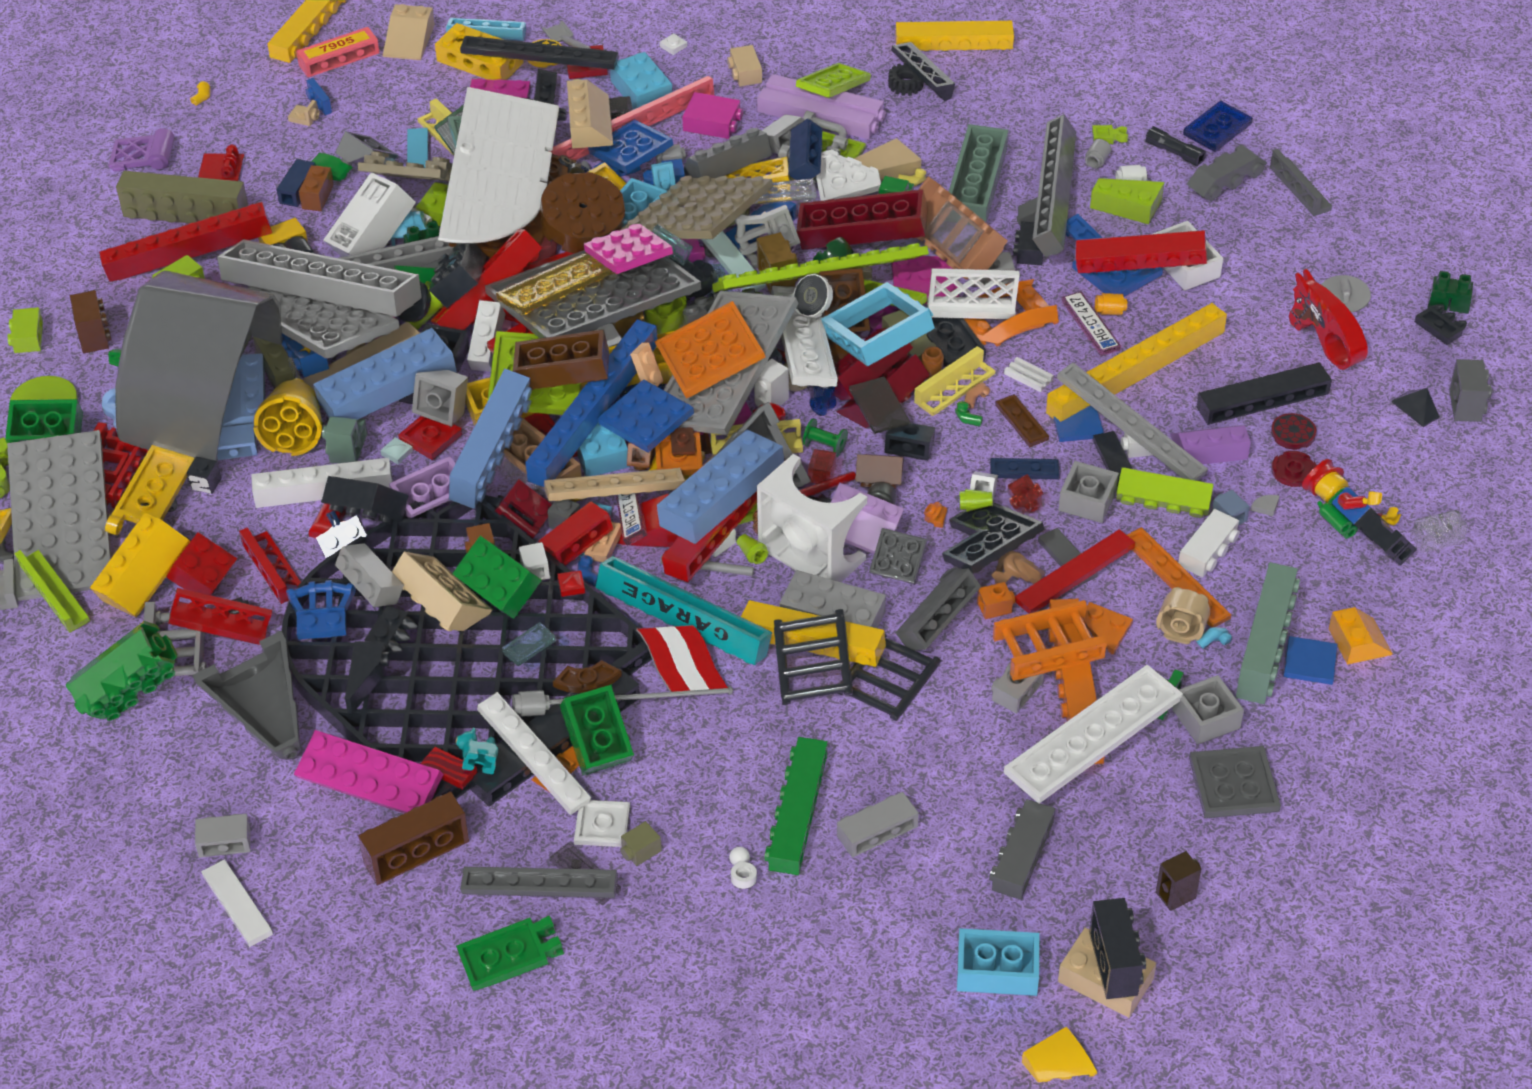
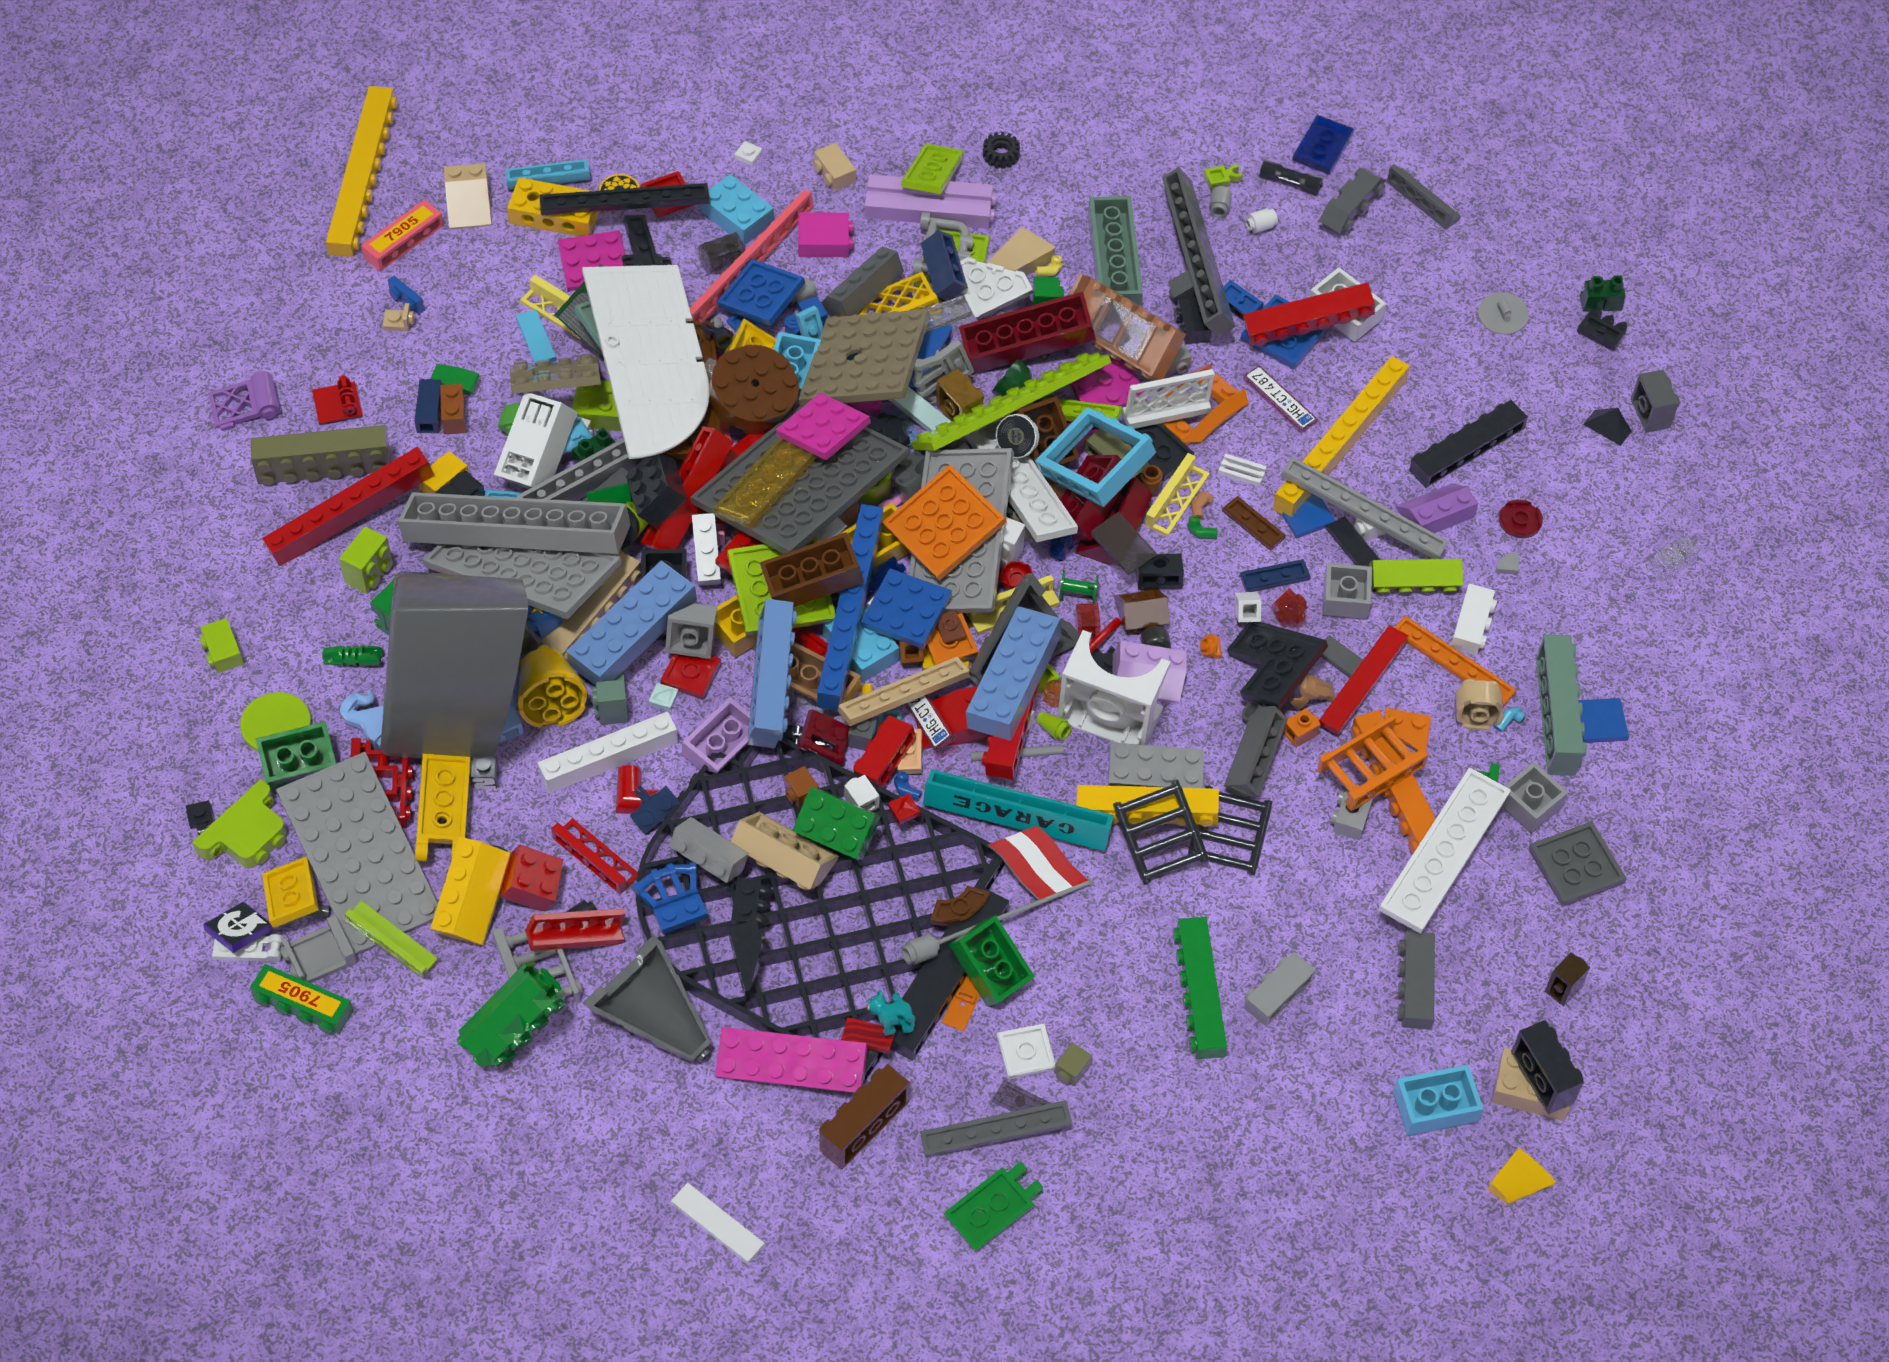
camera: 20 degrees left, 10 degrees up
(90, 321) = (289, 622): reddish brown brick -> none
(203, 93) = (278, 315): yellow arm -> none
(222, 835) = (676, 1158): light grey brick -> none
(355, 146) = (486, 354): slope -> none
(364, 499) = (667, 767): black brick -> none
(529, 644) = (889, 884): clear light blue tile -> none
(534, 753) = (941, 999): white plate -> none
(563, 33) = (625, 163): light grey piece -> none
(589, 115) = (709, 268): tan slope -> none
(646, 364) = (886, 552): light nougat plate -> none
(680, 248) = (861, 405): clear light blue plate -> none
(739, 858) = (1166, 1054): white plate -> none
(780, 131) = (906, 240): light grey brick -> none
(898, 556) = (1196, 702): dark grey tile -> none
(925, 69) = (1018, 136): black fence -> none
(956, 35) = (1030, 88): yellow brick -> none
(975, 499) = (1246, 625): lime cone -> none
(1110, 304) = (1293, 374): light orange brick -> none
(1127, 198) = (1268, 249): lime wedge -> none
(1232, 505) = (1480, 575): sand blue brick -> none
(1293, 431) = (1506, 478): dark red tile -> none
(1331, 319) = (1509, 352): red animal -> none
(1351, 512) = (1589, 558): piece -> none
(1357, 636) = (1635, 686): light orange slope -> none

